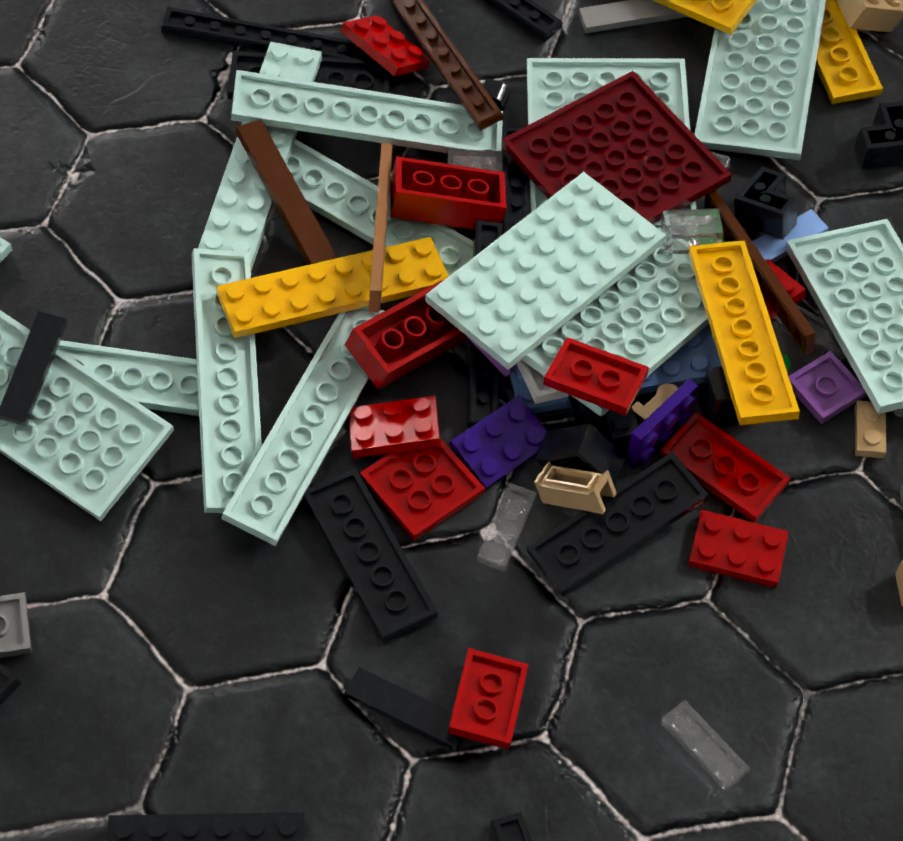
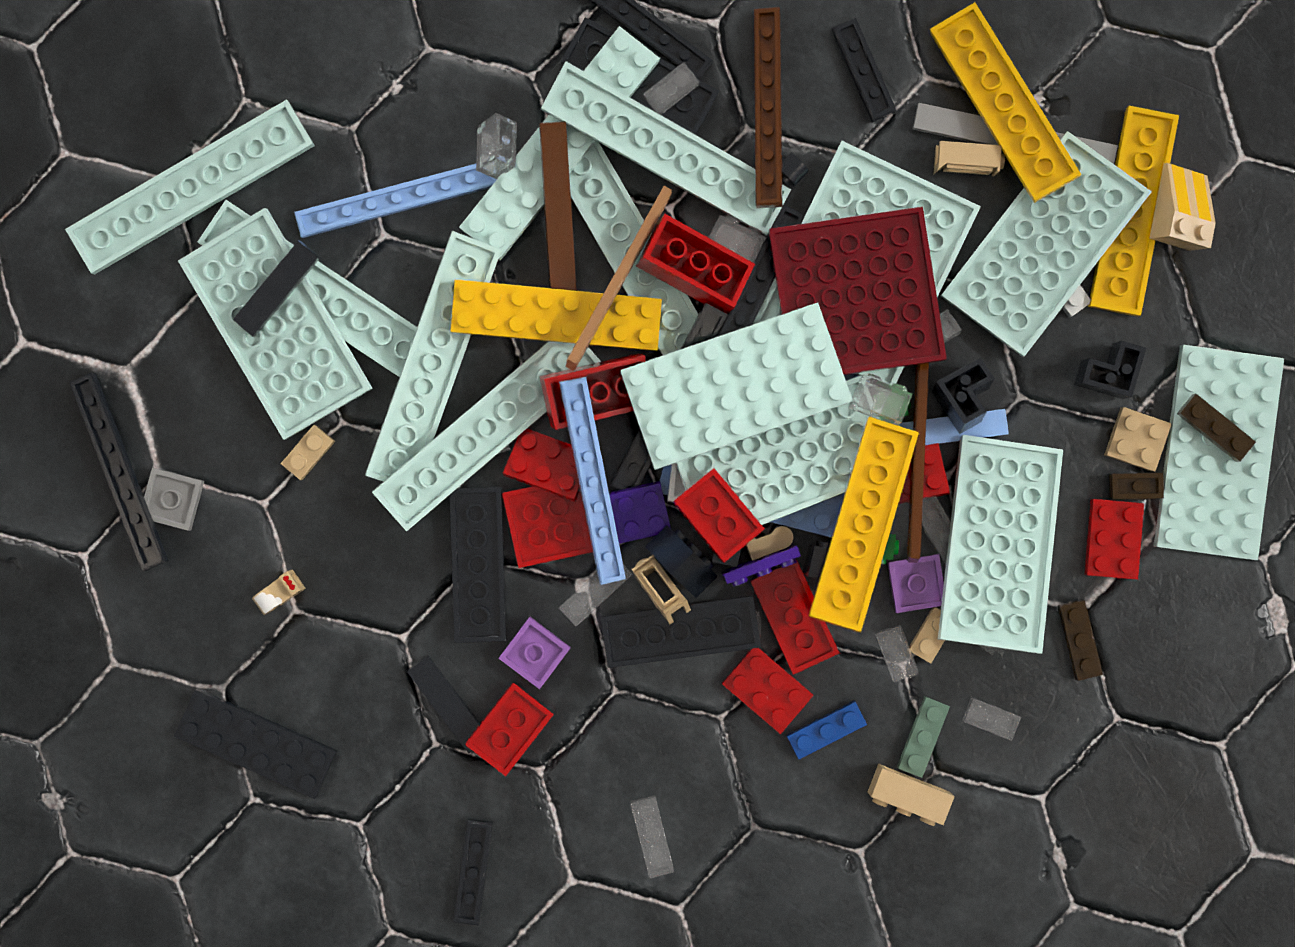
camera: 30 degrees right, 30 degrees up
(119, 262) = (391, 200): none -> light blue tile
(130, 524) = (307, 452): none -> tan plate
(161, 670) = (278, 592): none -> tan leg
(200, 173) = (496, 146): none -> clear brick
(347, 68) = (671, 89): none -> clear plate
(385, 45) = (722, 71): red plate -> none
(451, 411) = (592, 480): none -> light blue tile
(474, 613) = (534, 652): none -> medium lavender plate
(650, 30) = (968, 158): none -> tan window
(818, 104) = (1076, 302): none -> white plate
(822, 561) = (826, 729): none -> blue plate
(847, 456) = (897, 653): none -> clear plate

